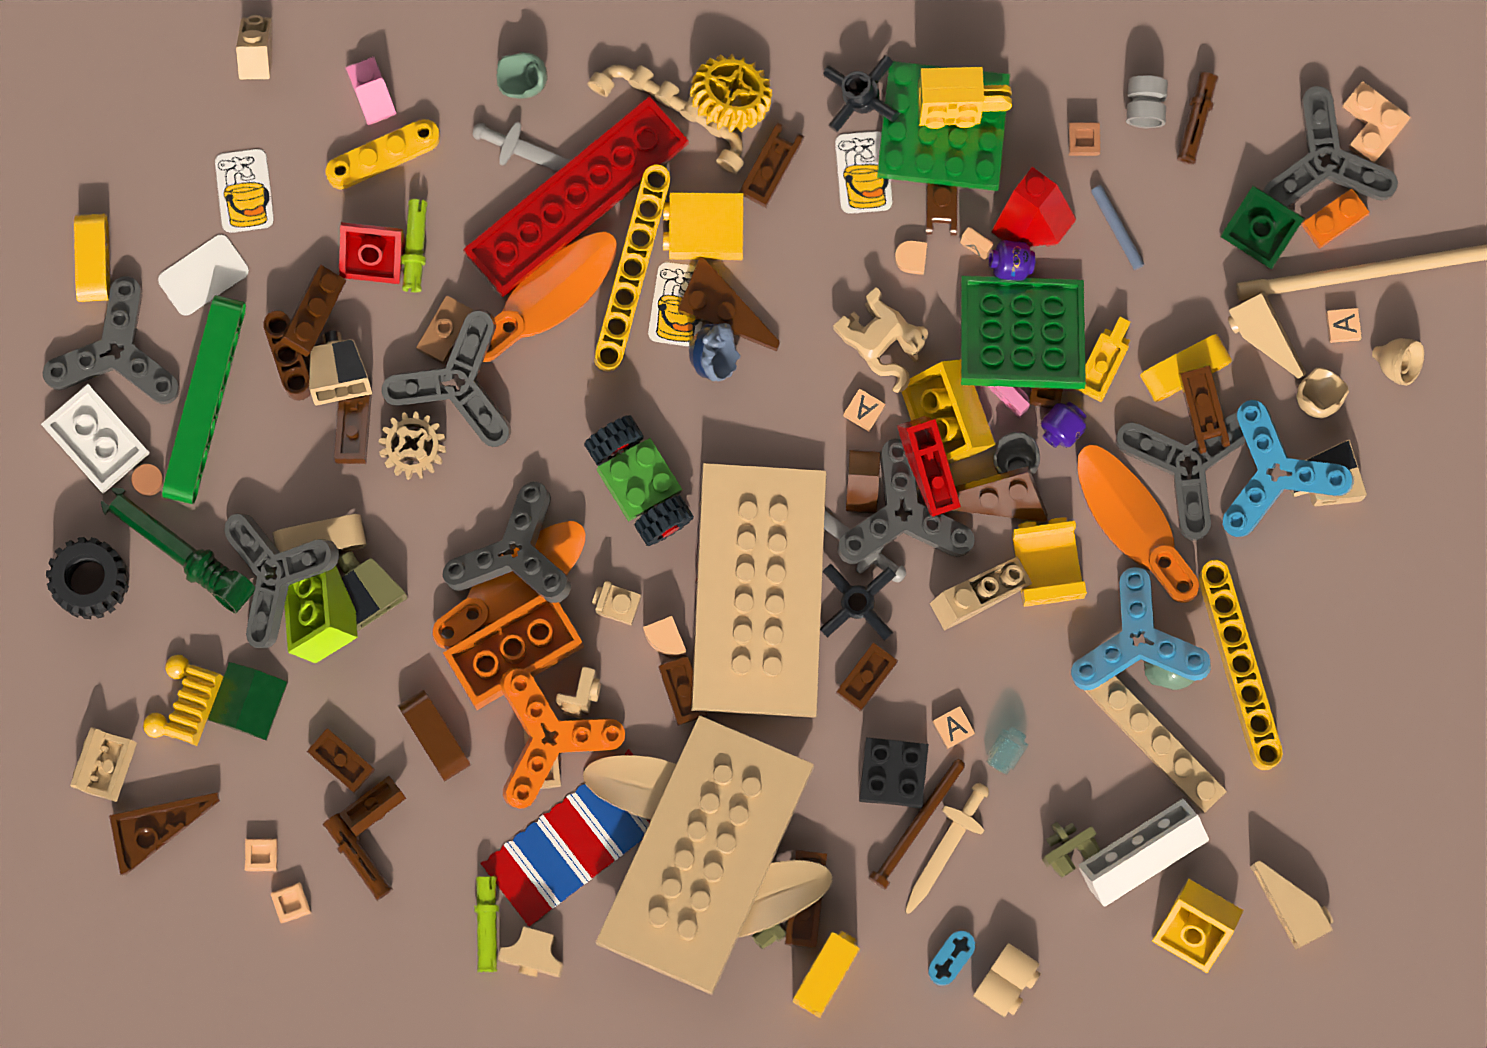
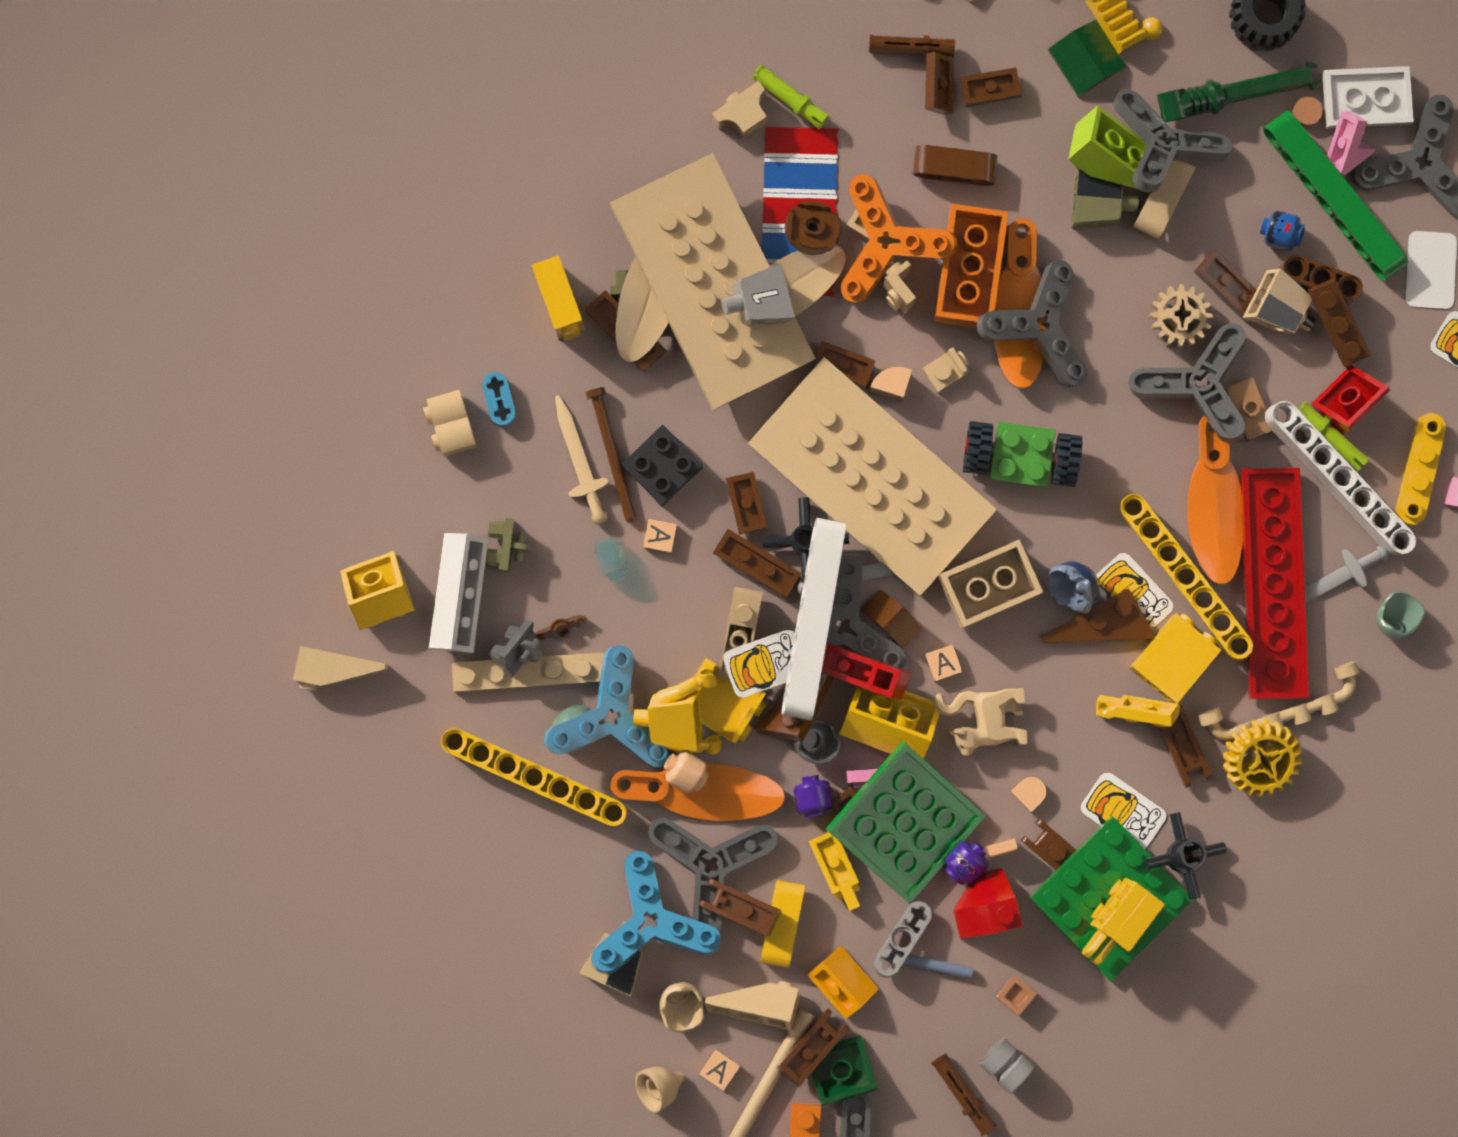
camera: 130 degrees right, 5 degrees up
(153, 420) = (1346, 146): none -> bright pink slope
(270, 418) = (1282, 230): none -> blue head
(446, 223) = (1353, 481): none -> white beam
(572, 811) = (815, 216): none -> reddish brown plate
(688, 797) = (761, 298): none -> light grey torso
(769, 420) = (990, 584): none -> tan brick
(773, 221) = (1138, 709): none -> yellow hinge
(910, 627) = (757, 563): none -> reddish brown plate
(921, 536) = (813, 619): none -> white beam
(989, 549) = (760, 663): none -> sticker
(1095, 583) = (676, 717): none -> yellow torso
(1100, 746) = (561, 627): none -> reddish brown piece
(1108, 253) = (897, 961): none -> light grey beam
(1131, 542) = (686, 772): none -> light nougat head
(1145, 760) = (520, 648): none -> dark grey hips
(1190, 282) = (843, 982): none -> light orange panel
(1266, 263) = (811, 1049): none -> reddish brown hinge

